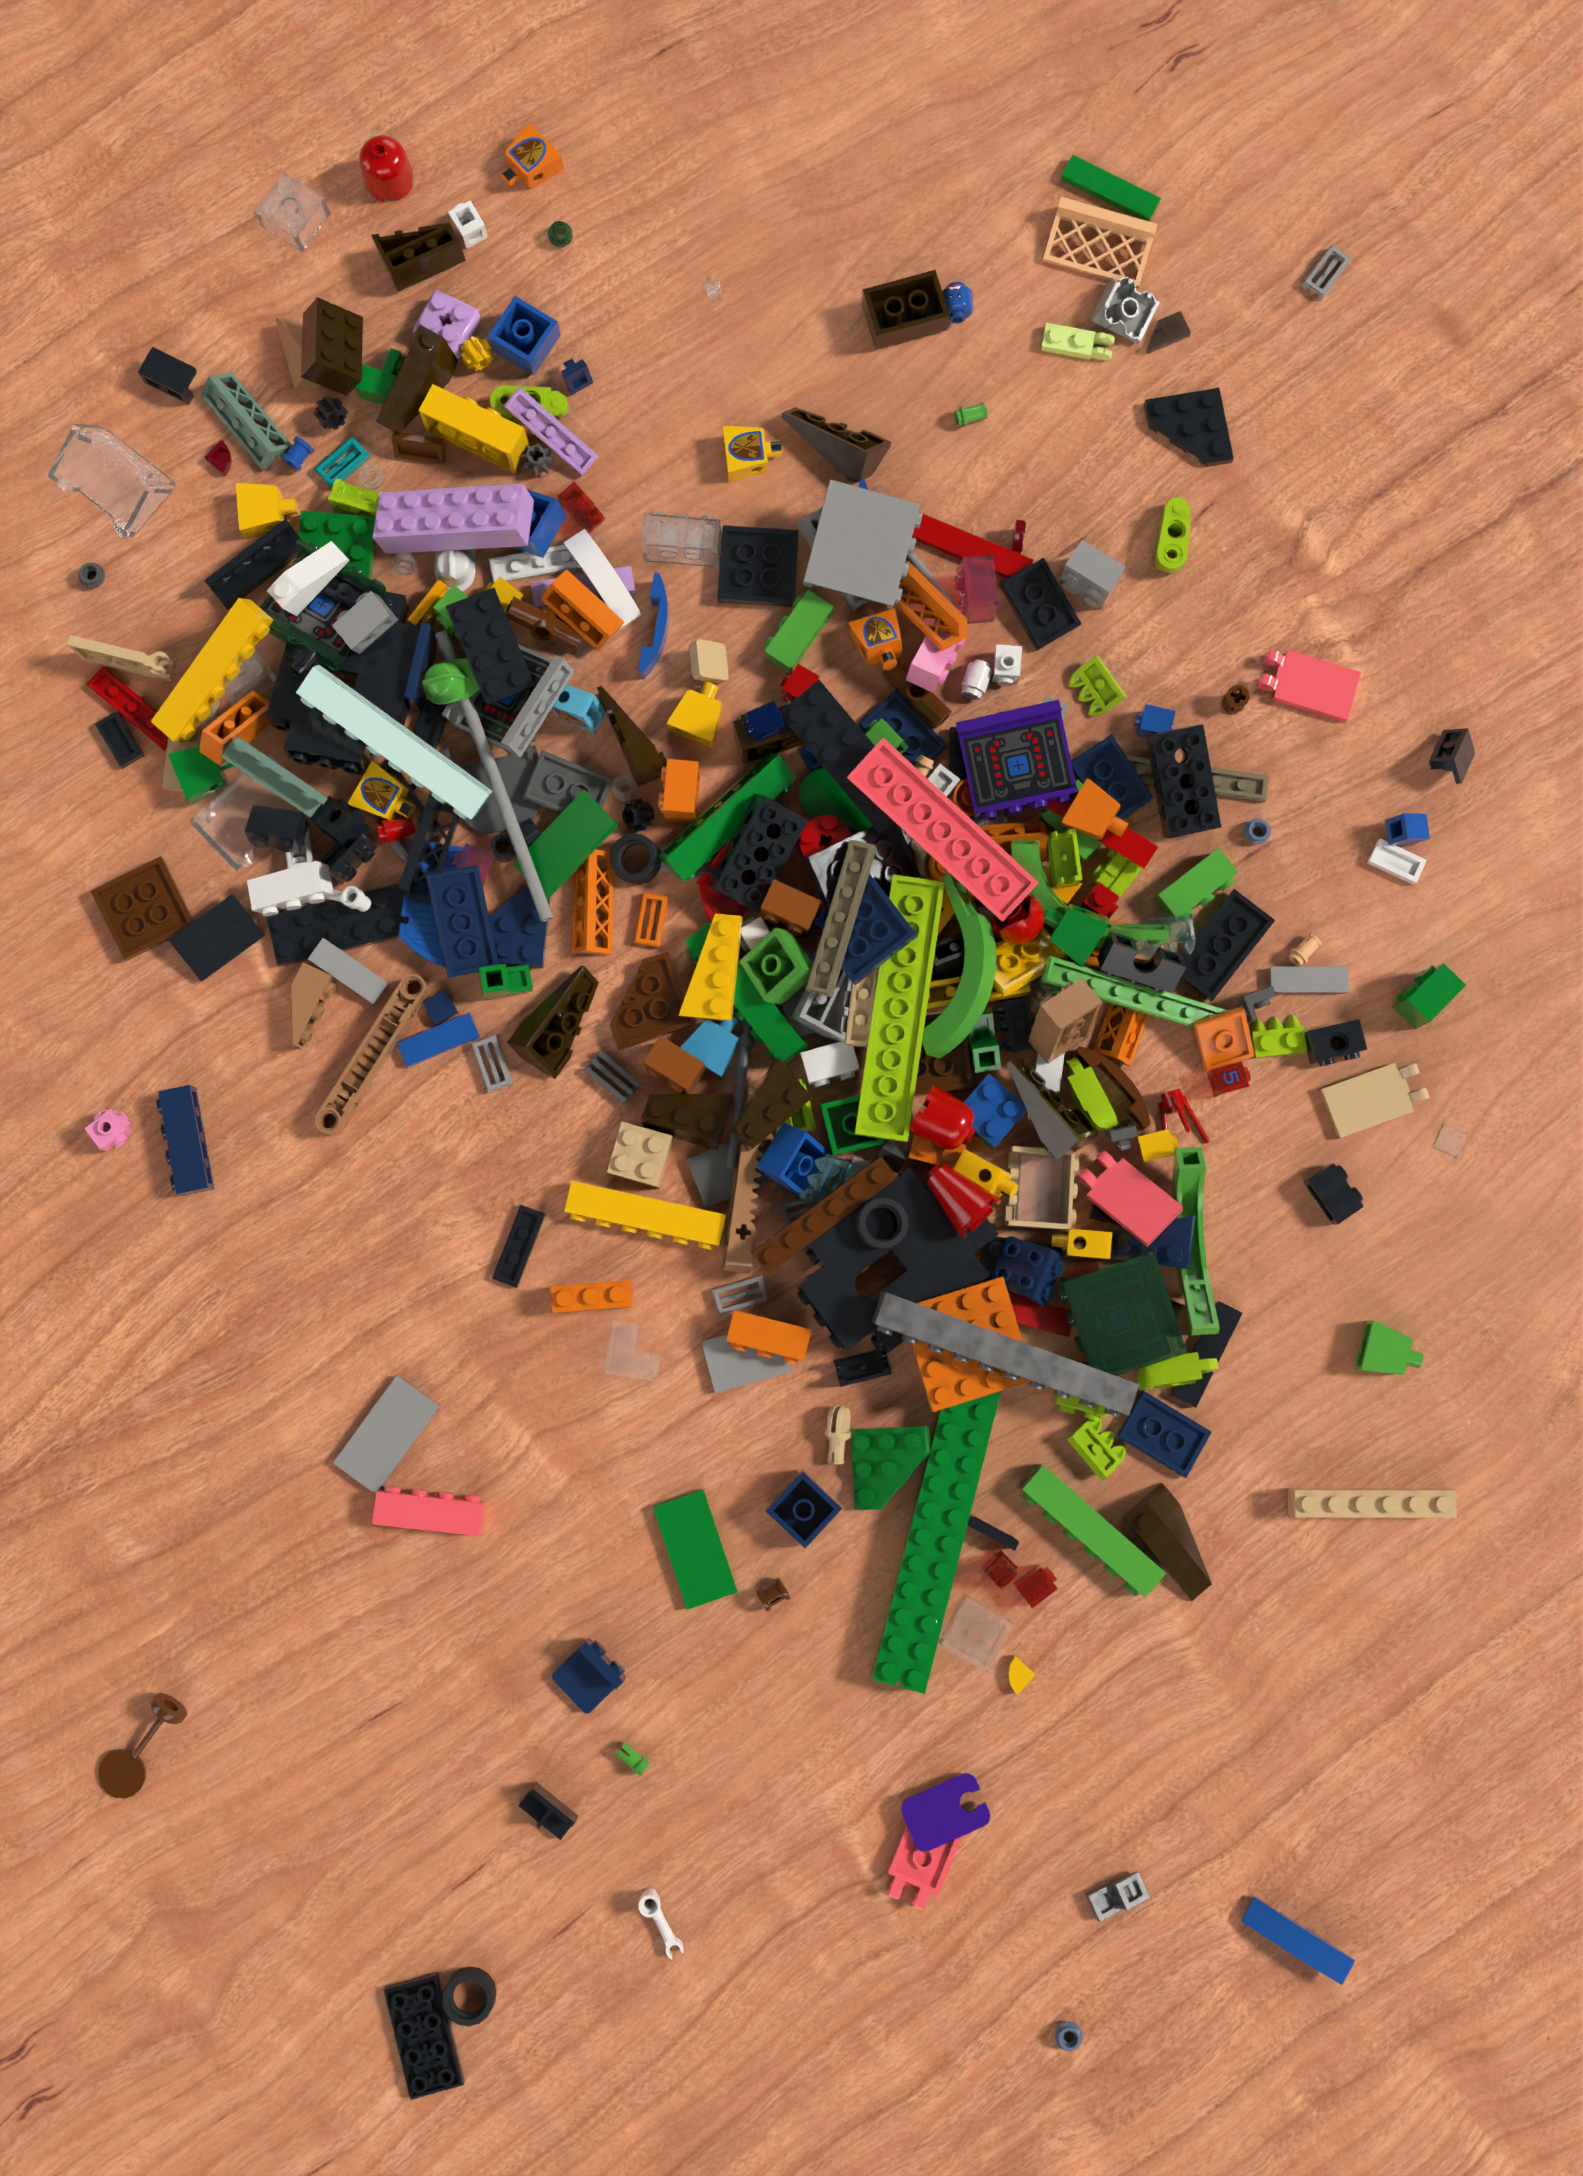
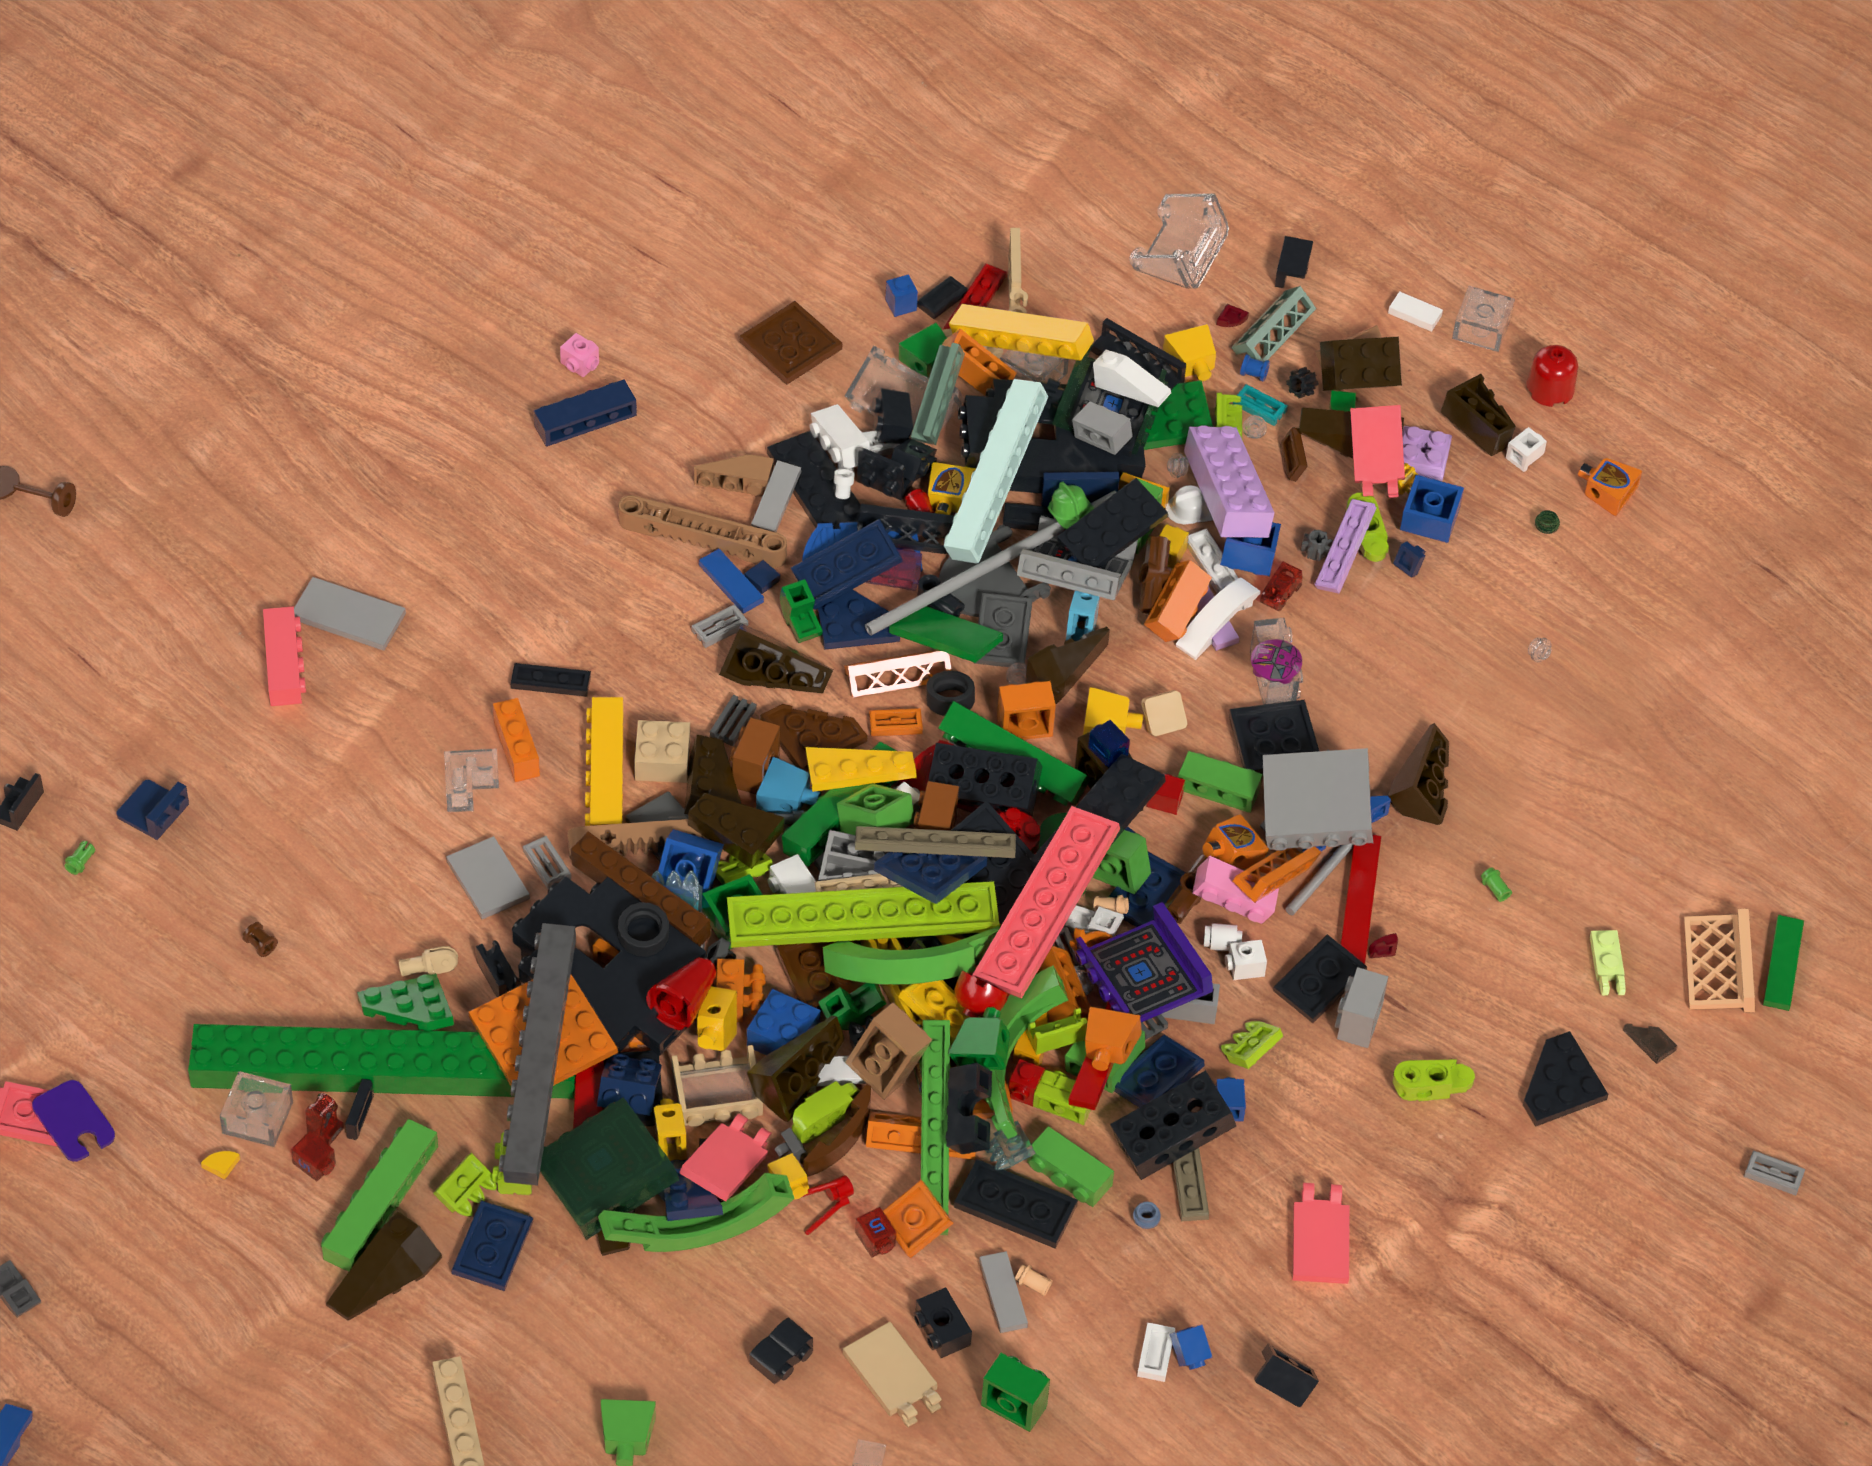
camera: 75 degrees right, 30 degrees down
(86, 570) = (1088, 246): dark grey plate -> none
(111, 780) = (901, 295): none -> blue brick
(216, 937) = (779, 398): black tile -> none
(260, 276) = (1415, 311): none -> white tile
(450, 361) = (1378, 447): none -> coral tile
(474, 428) = (1325, 483): yellow brick -> none
(638, 814) = (991, 686): black gear -> none
(651, 655) = (1184, 672): blue slope -> none
(695, 1549) = (290, 871): green tile -> none
(698, 535) = (1276, 660): none -> magenta dish
(747, 451) = (1385, 706): torso -> none
(768, 1337) = (510, 881): orange brick -> none
(803, 1509) = (349, 942): dark blue brick -> none
(905, 309) = (1579, 803): dark brown brick -> none
(944, 1121) = (761, 966): red cylinder -> none
(958, 301) = (1606, 848): blue head -> none
(977, 589) = (1312, 913): clear pink brick -> none
(1125, 309) = (1658, 996): light grey slope -> none
(1175, 1371) = (558, 1231): lime piece -> none
(1209, 1347) = (584, 1269): black tile -> none
(1242, 697) = (1279, 1166): reddish brown bush -> none
(1258, 999) = (965, 1240): dark grey bracket -> none
(1278, 1040) = (929, 1274): lime plate -> none

